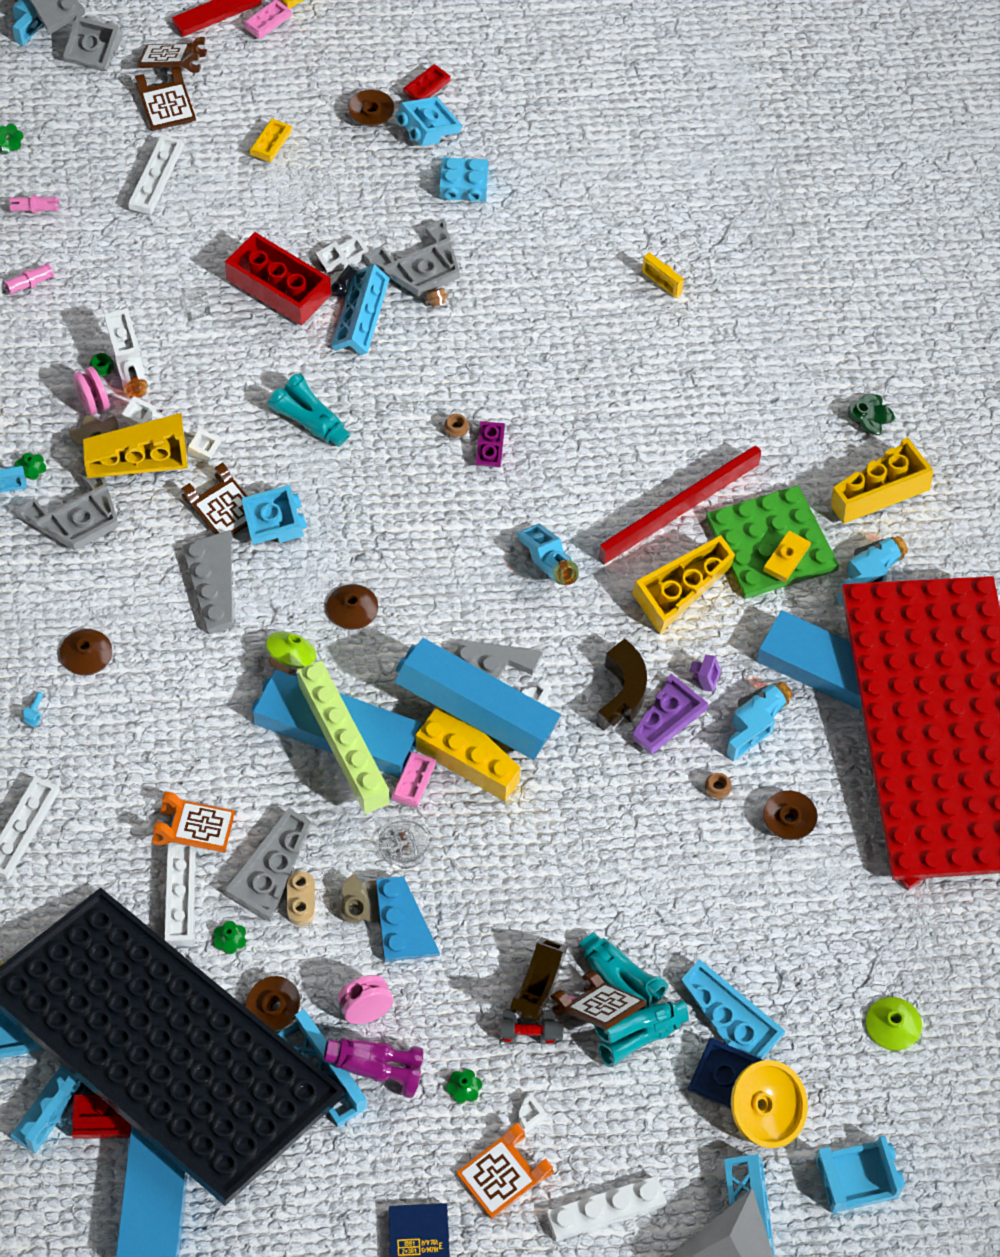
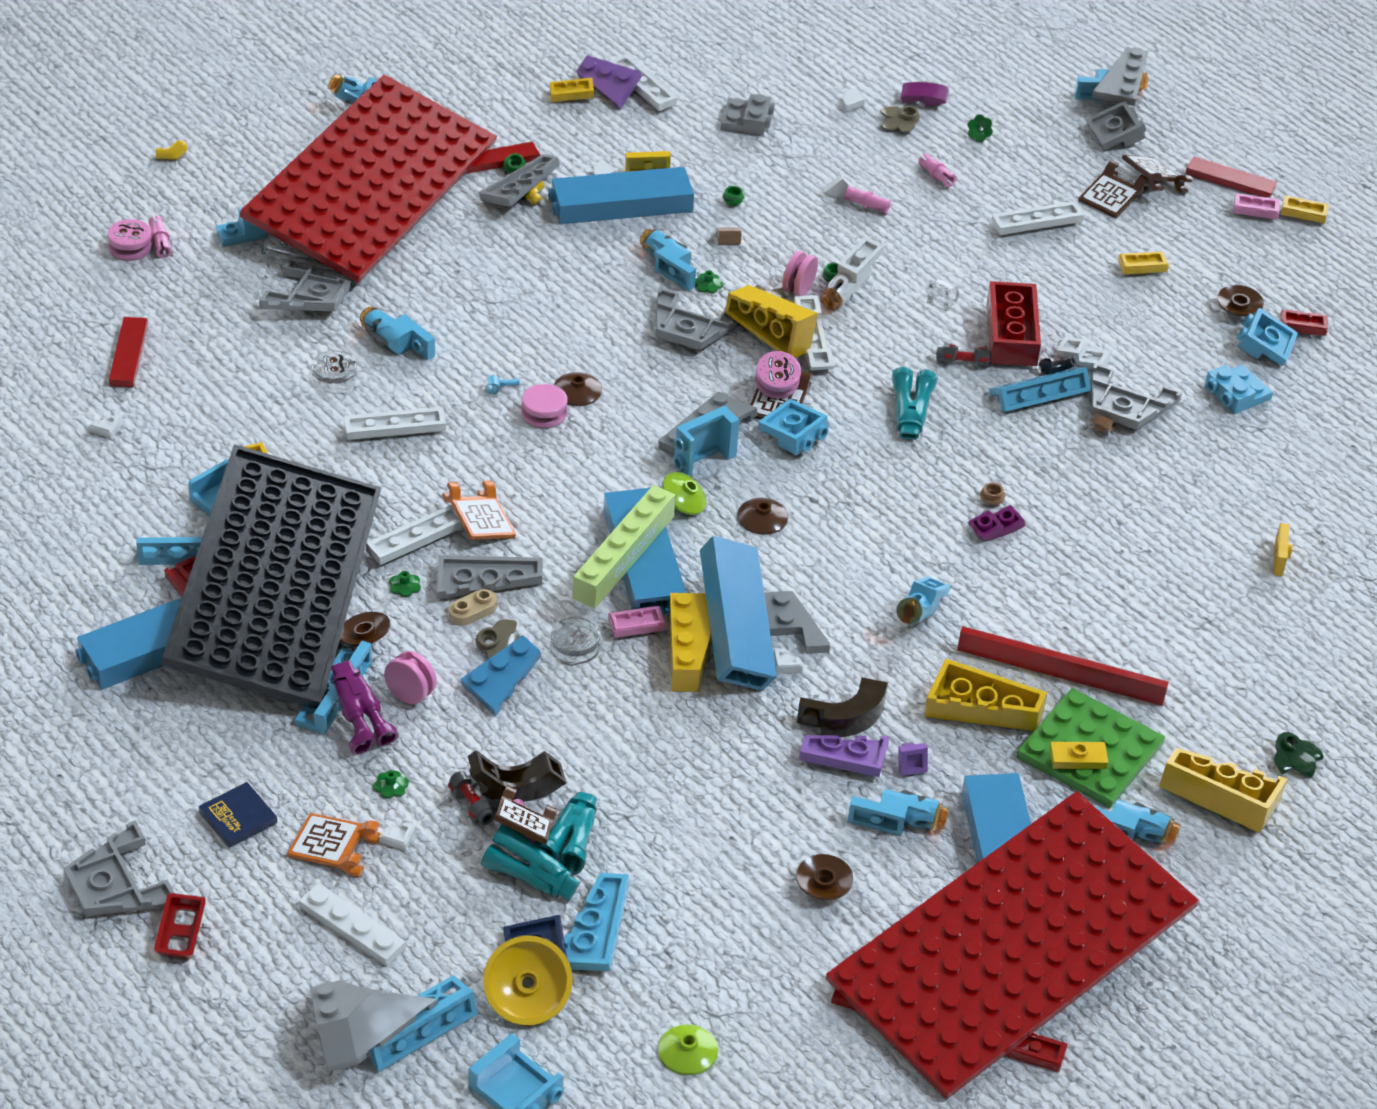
camera: 55 degrees right, 15 degrees down
(94, 692) = (544, 405): none -> bright pink head
(209, 489) = (777, 374): none -> bright pink head
(248, 576) = (705, 437): none -> medium azure panel
(271, 345) = (950, 352): none -> dark grey piece
(718, 779) = (810, 817): medium nougat plate -> none

